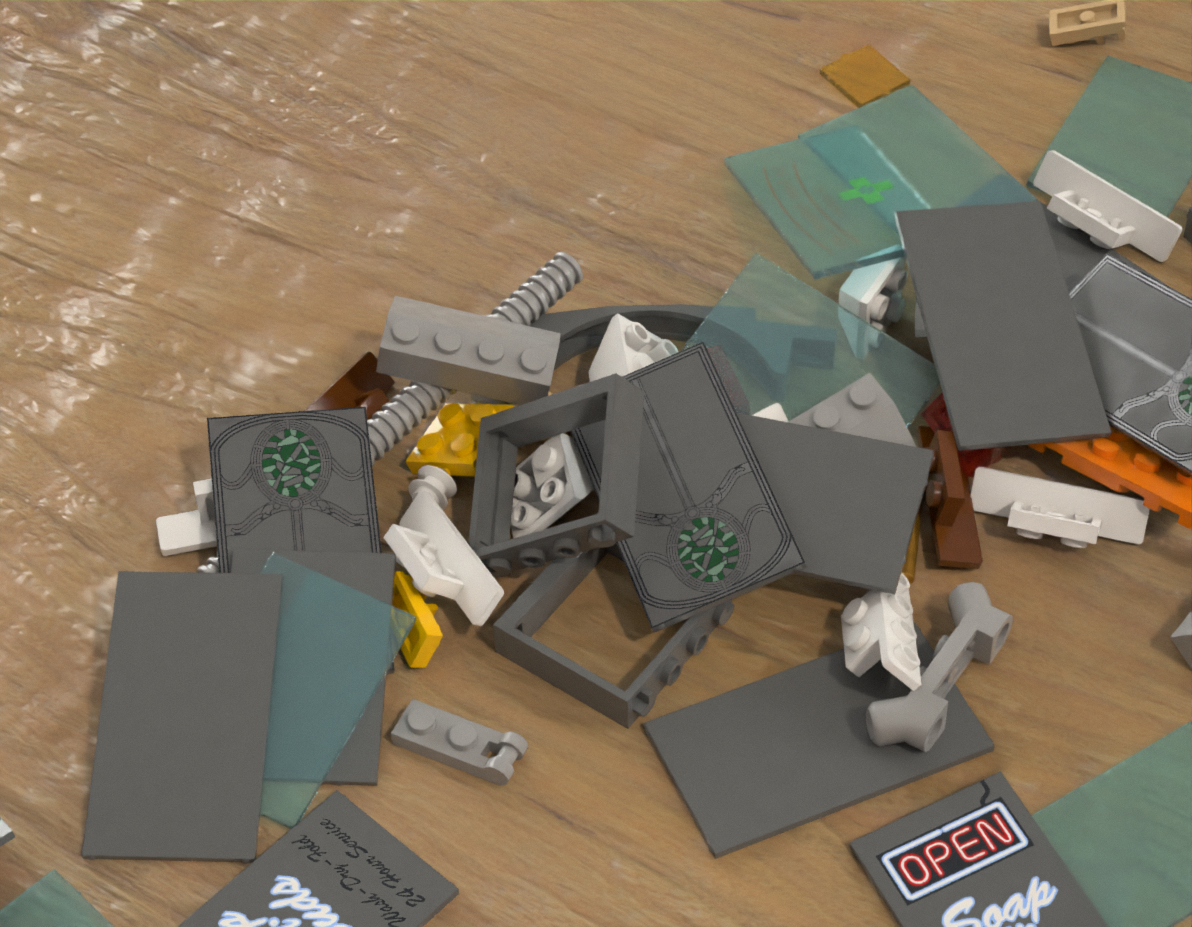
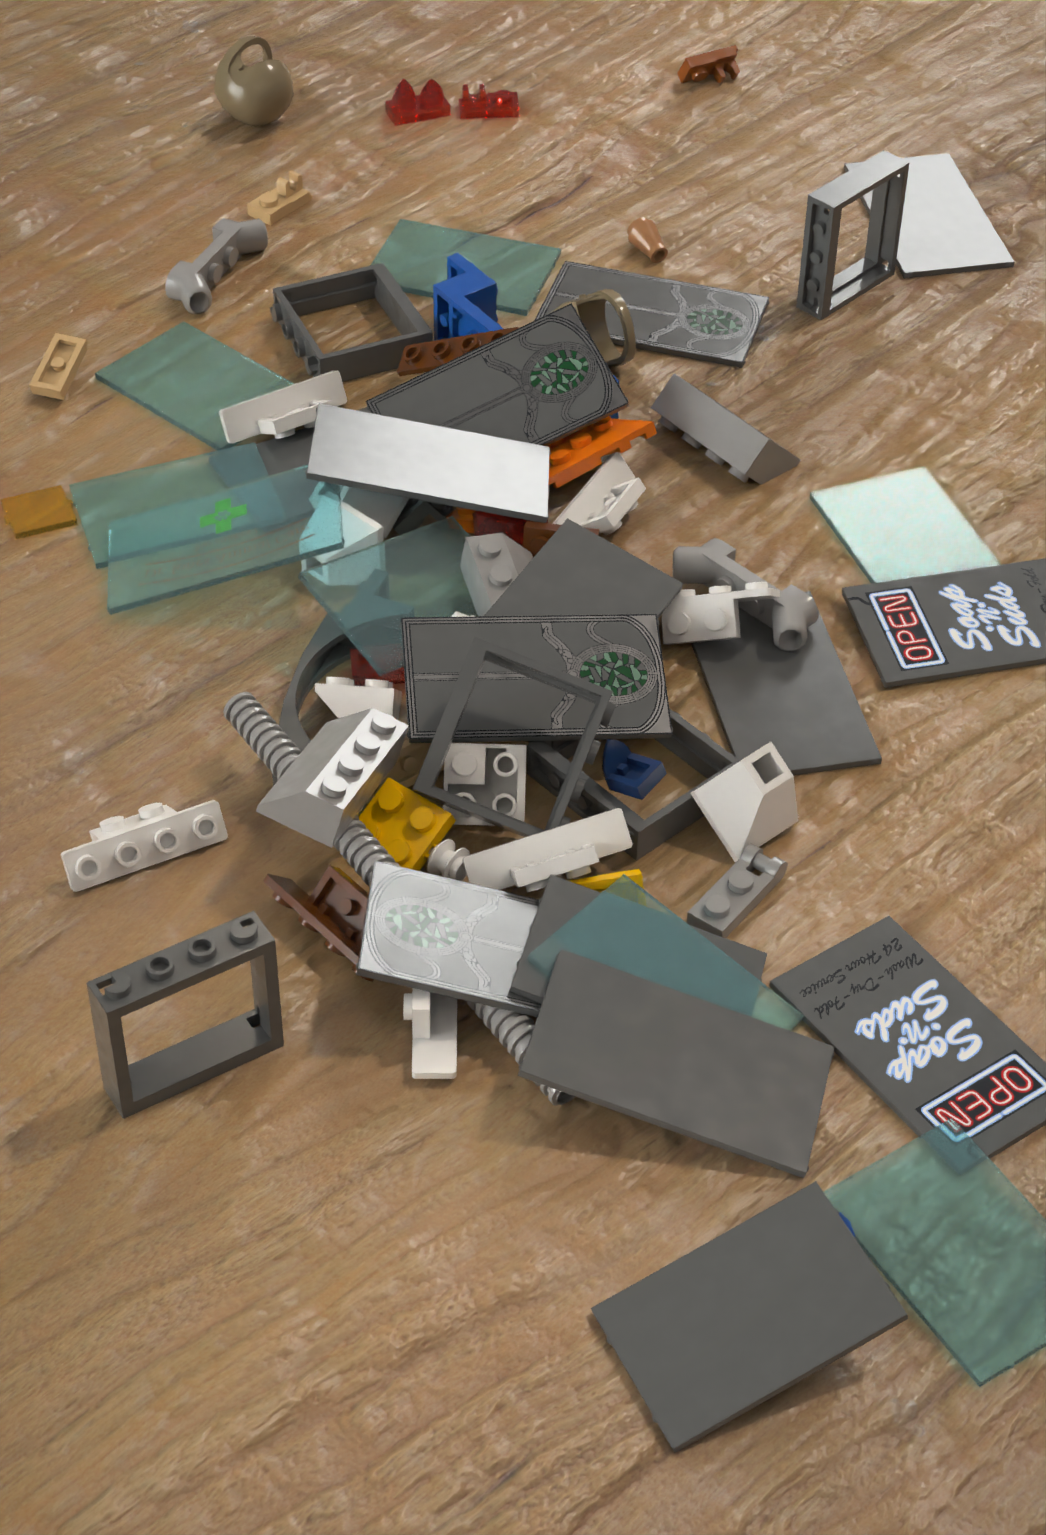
camera: 80 degrees left, 5 degrees down
(176, 376) = (202, 1055): none -> dark grey window
(406, 258) = (142, 841): none -> white bracket
(567, 592) = (628, 771): none -> dark blue plate
(573, 720) = (750, 800): none -> white slope

